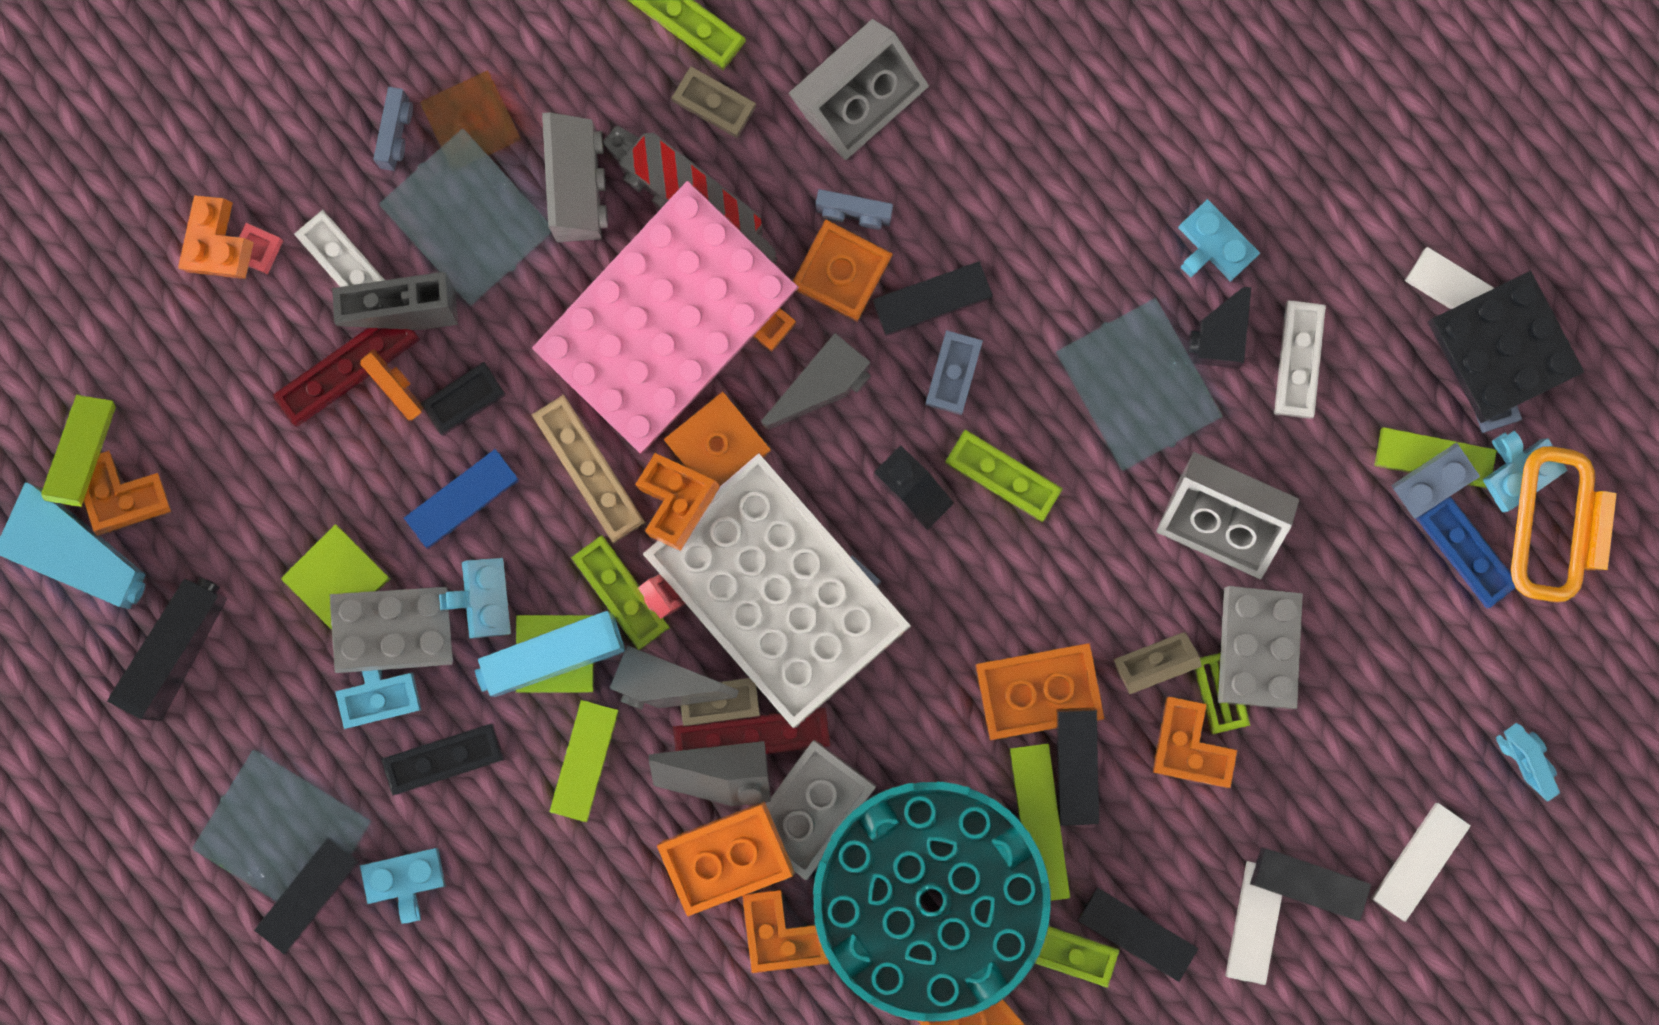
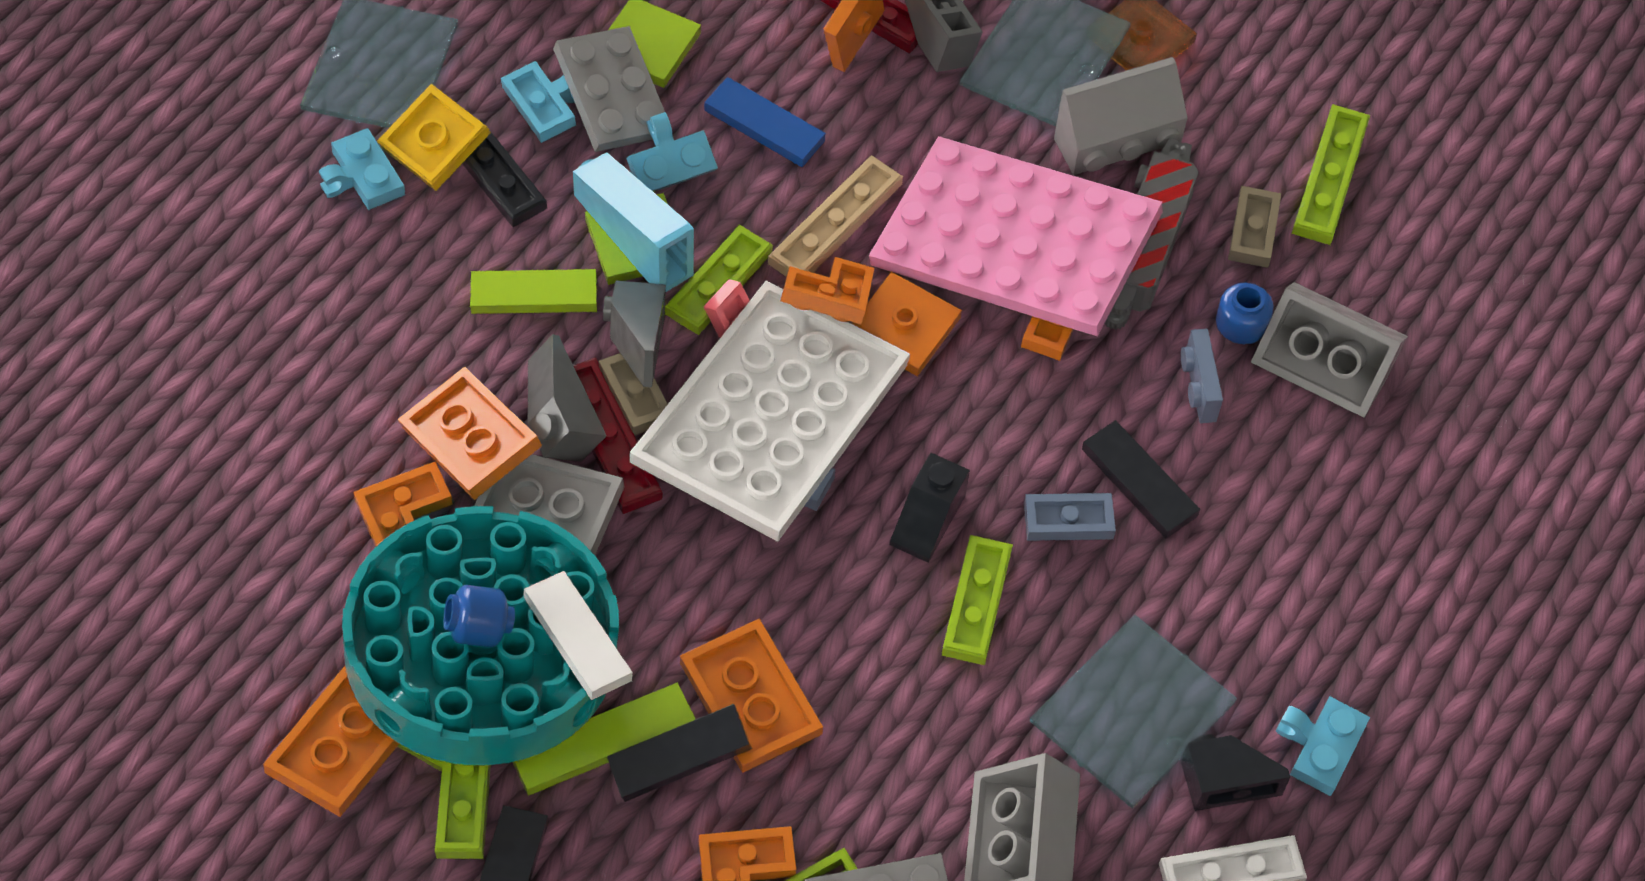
camera: 65 degrees right, 25 degrees down
(307, 895) = (325, 92): black tile -> none
(391, 808) = (433, 137): none -> yellow tile
(463, 399) = (864, 99): black tile -> none
(801, 138) = (1244, 313): none -> blue head
(825, 380) = (1008, 394): dark grey slope -> none
(841, 270) = (1133, 384): orange plate -> none
(941, 905) = (478, 616): none -> blue head
(973, 825) = (578, 635): none -> white tile
(1157, 662) = (825, 806): dark tan plate -> none

